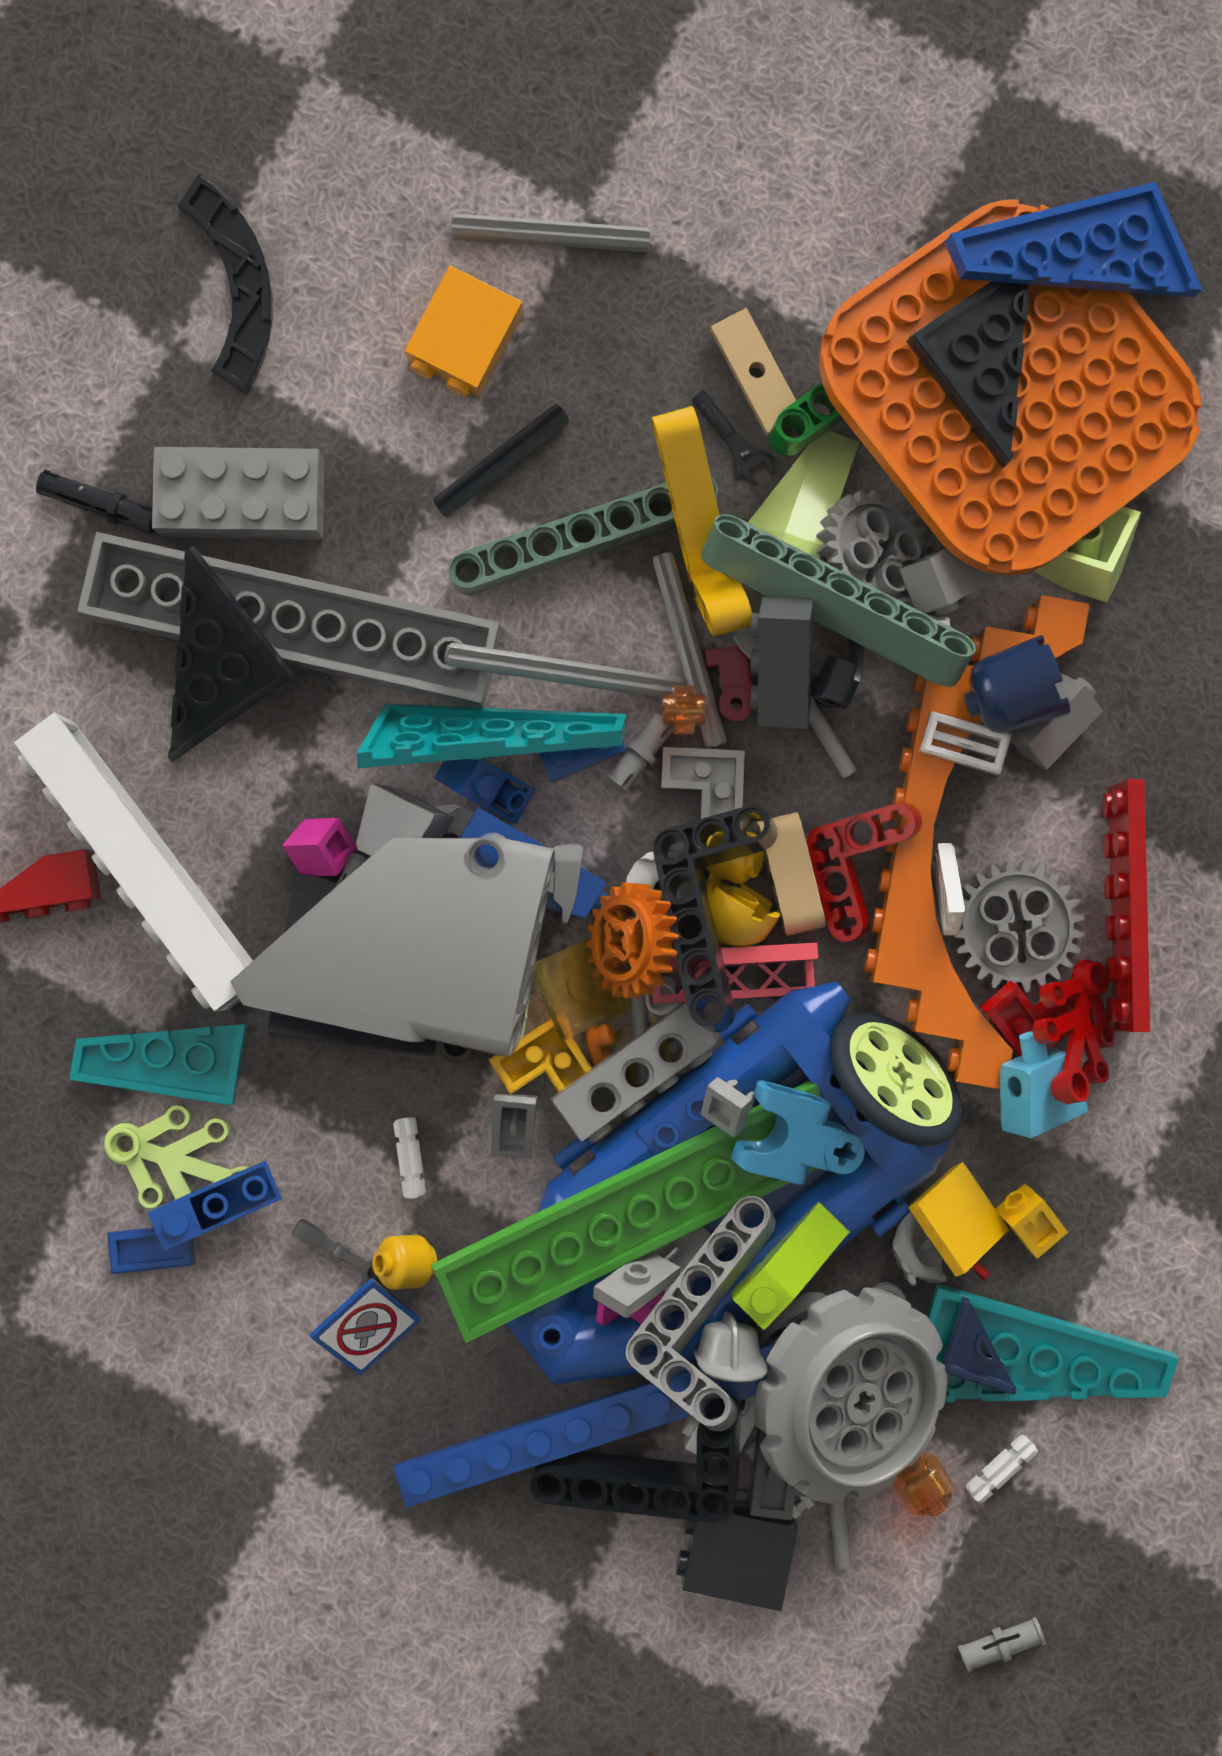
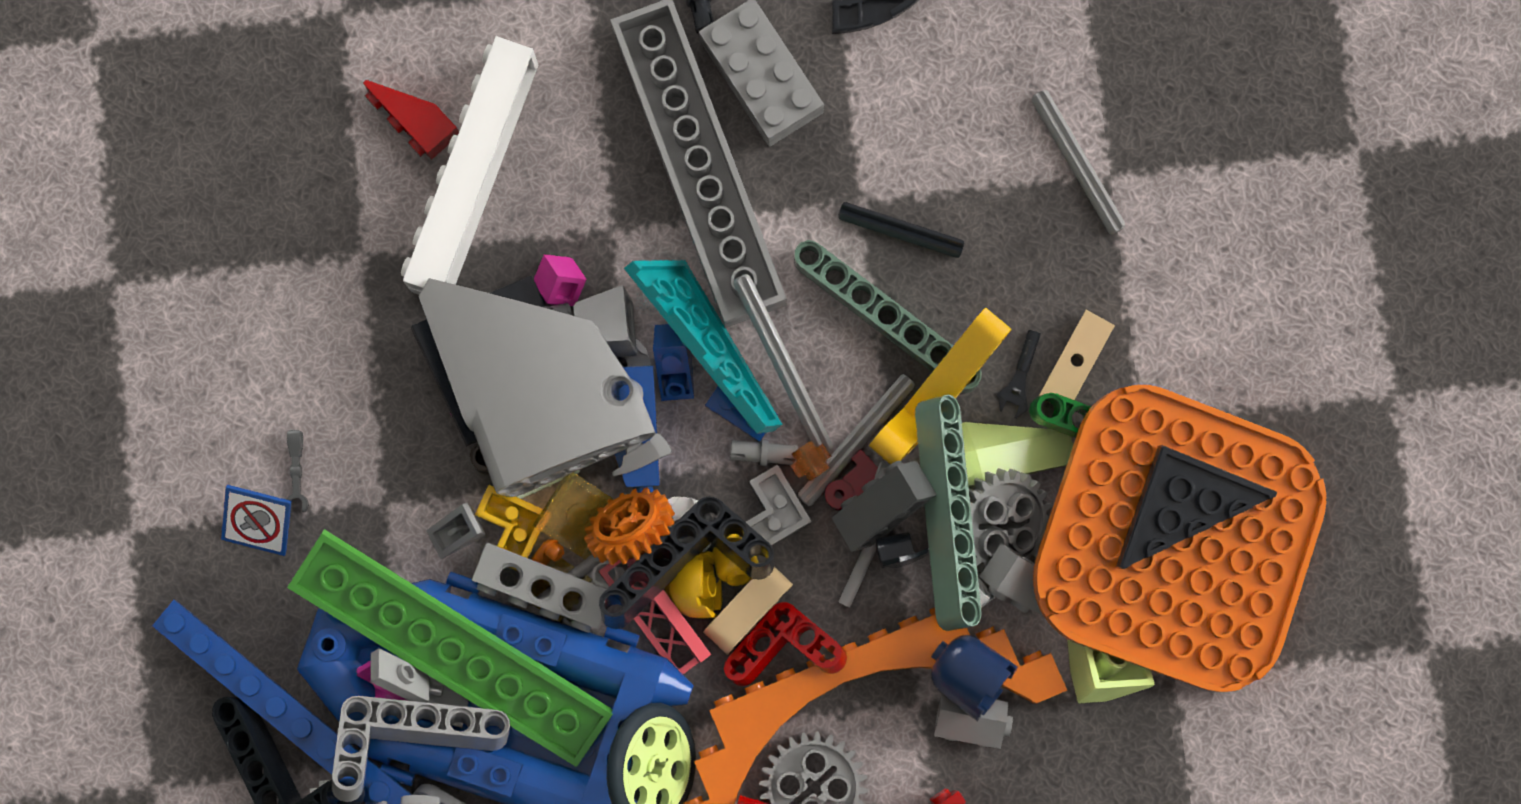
camera: 60 degrees right, 5 degrees down
(142, 1251) = (218, 345): blue tile -> none
(171, 1159) = (286, 322): yellowish green plant -> none
(176, 1063) = (351, 277): teal wing -> none
(214, 1205) = (273, 366): blue slope -> none
(220, 659) = (640, 132): black tile -> none
(404, 1262) = (315, 514): yellow head -> none
(409, 1157) = (389, 476): white axle -> none
(463, 332) = (969, 148): light orange brick -> none
(726, 1106) = (557, 660): light grey tile -> none
(730, 1351) = (394, 770): light grey piece -> none
(789, 1266) = (477, 774): lime slope -> none
(799, 1138) = (567, 725): dark azure piece -> none
(930, 734) = (921, 694): white tile -> none
(948, 889) = (806, 720): white tile -> none
(1096, 243) = (1321, 536): blue wing -> none

